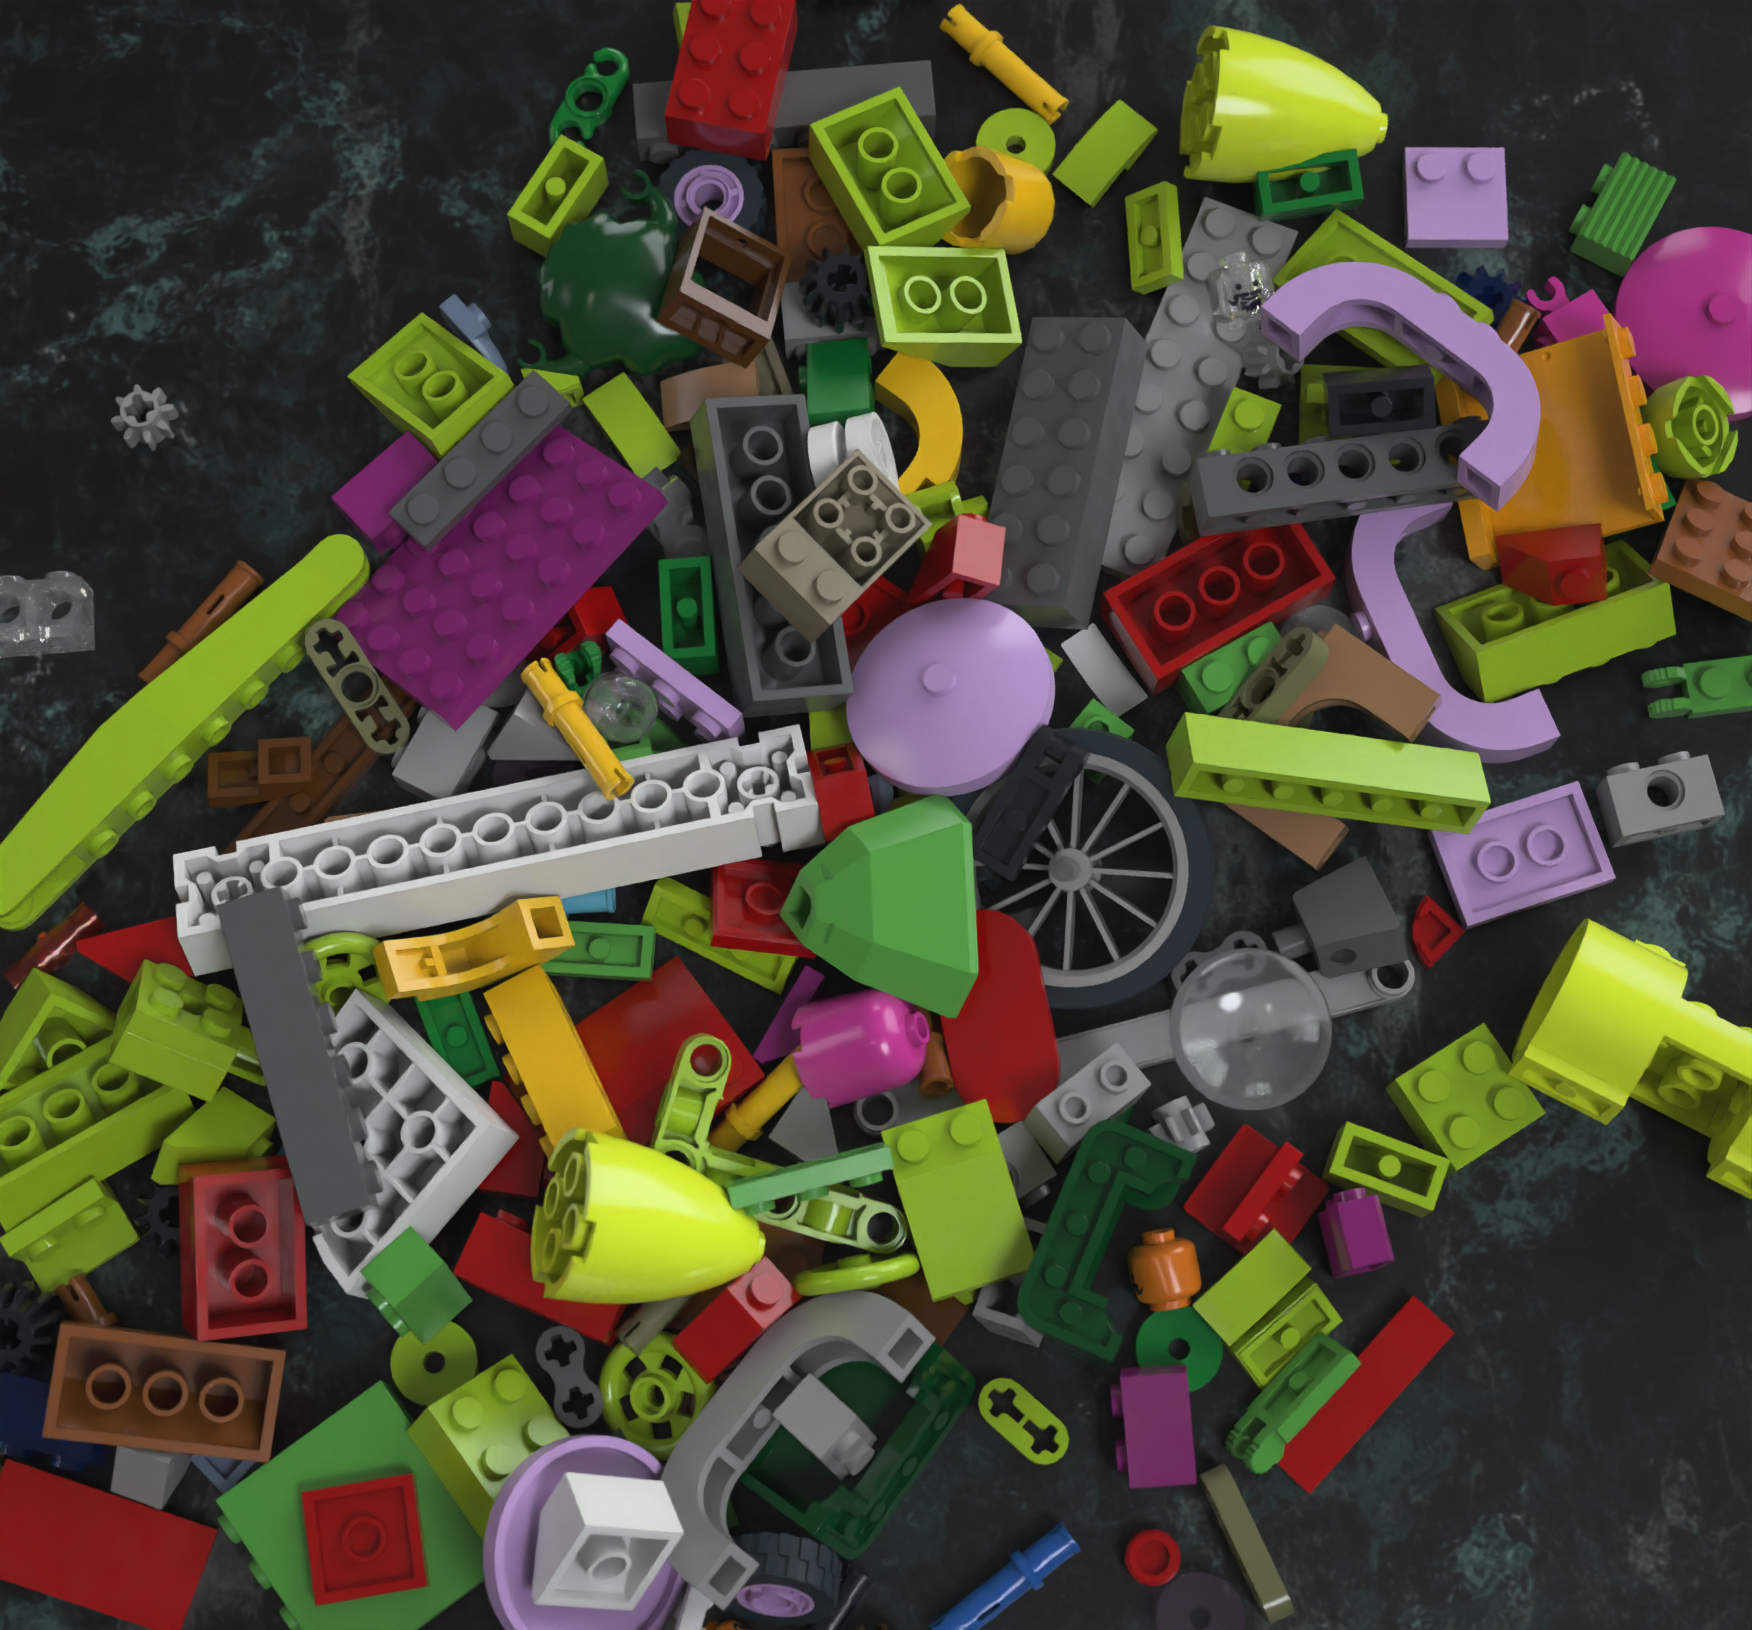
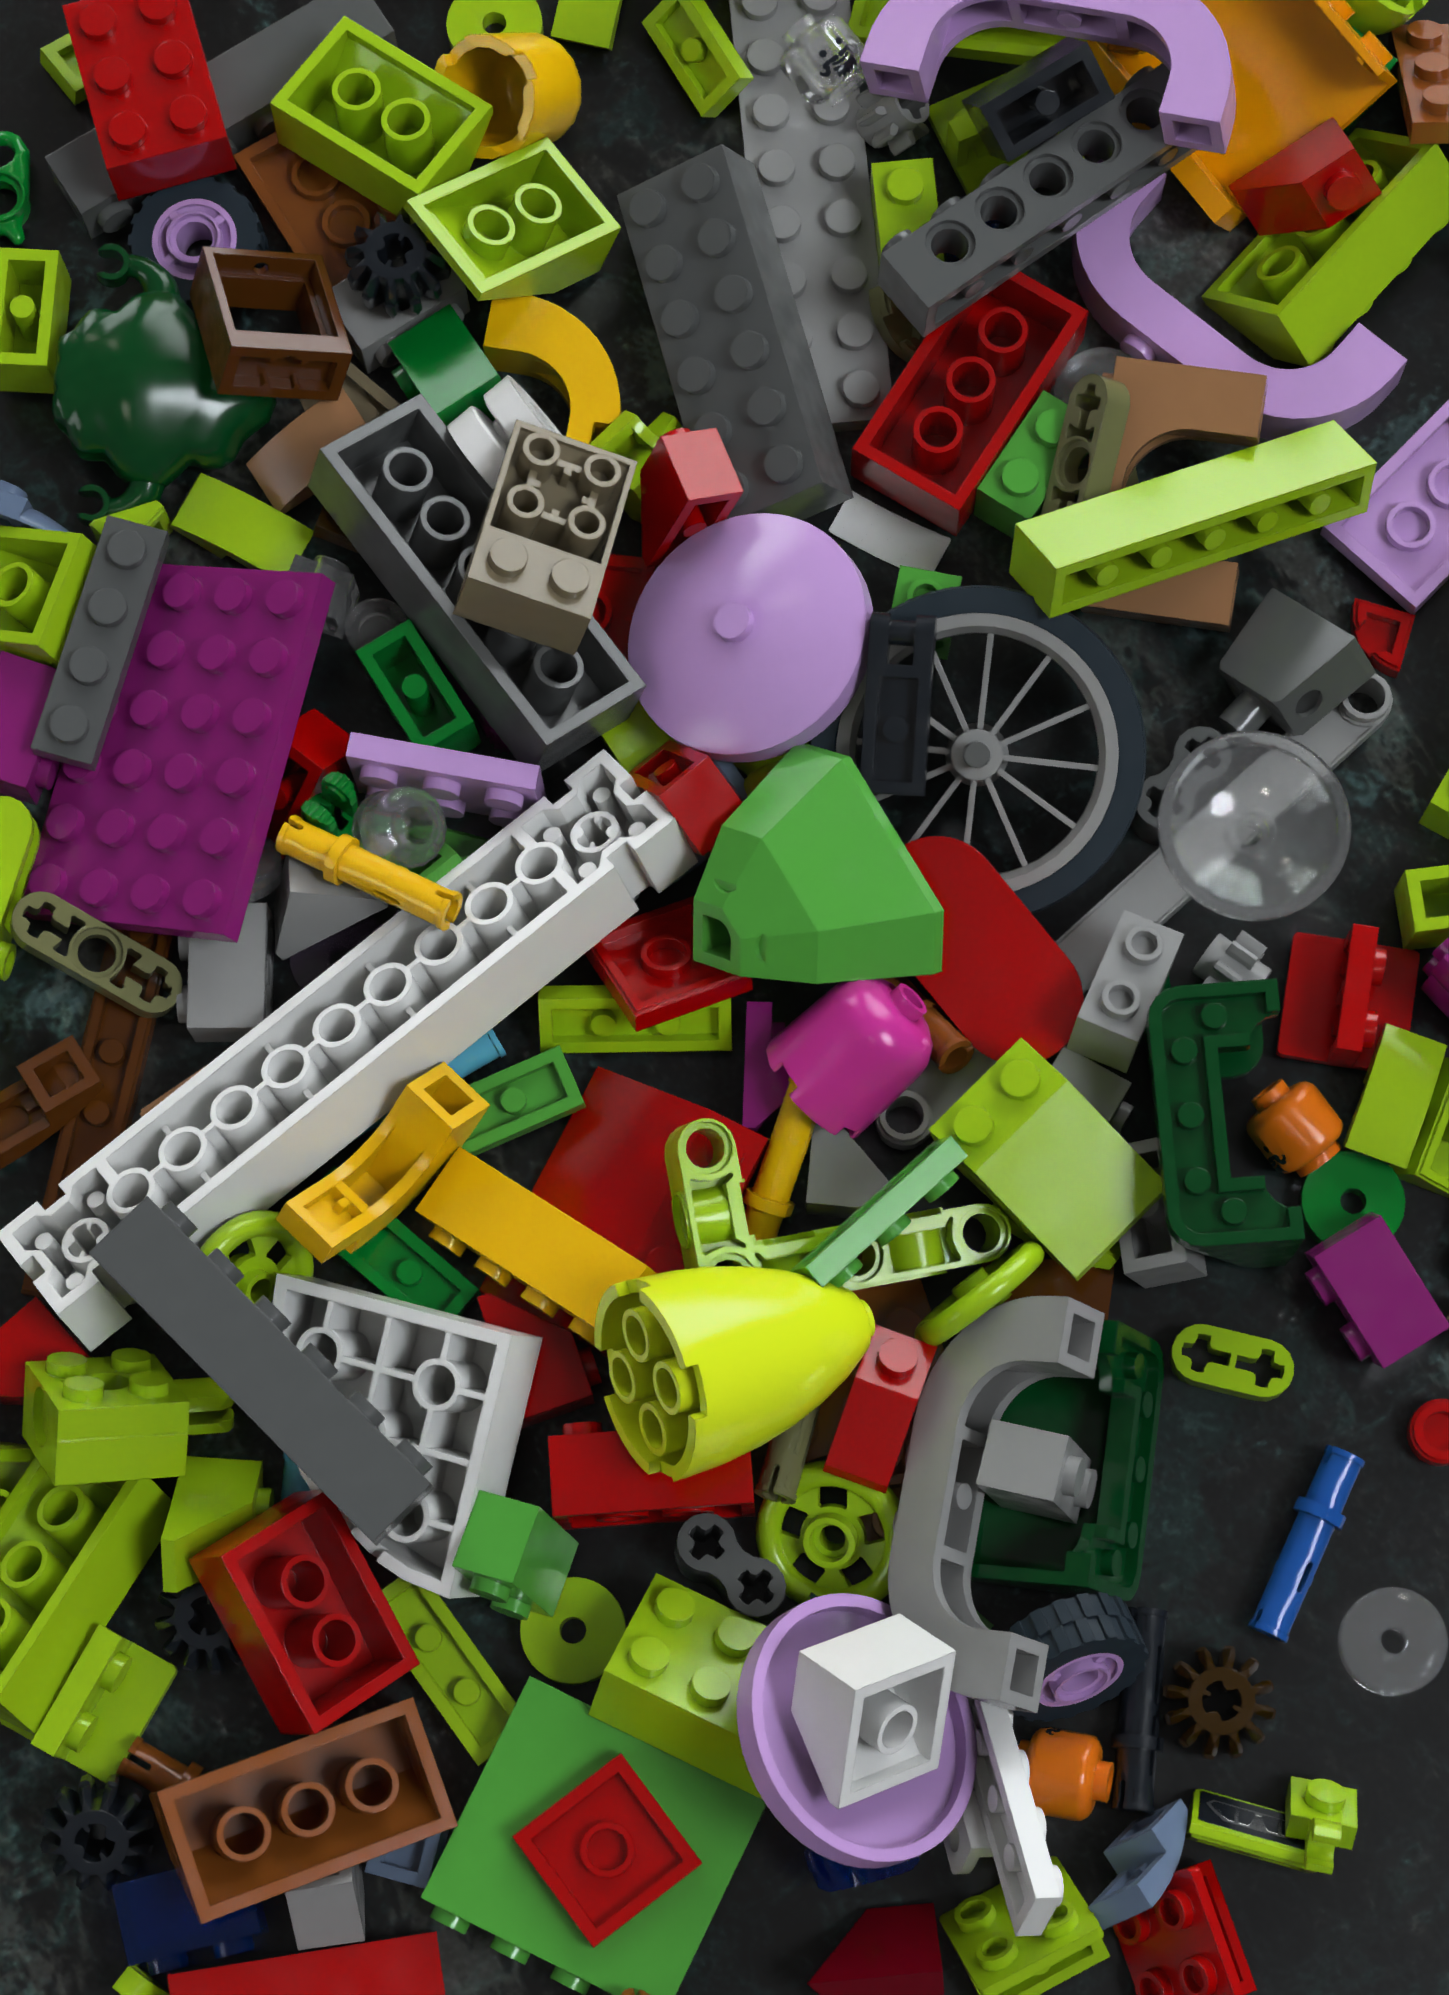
camera: 25 degrees left, 0 degrees up
(330, 1344) = (452, 1669): none -> lime plate

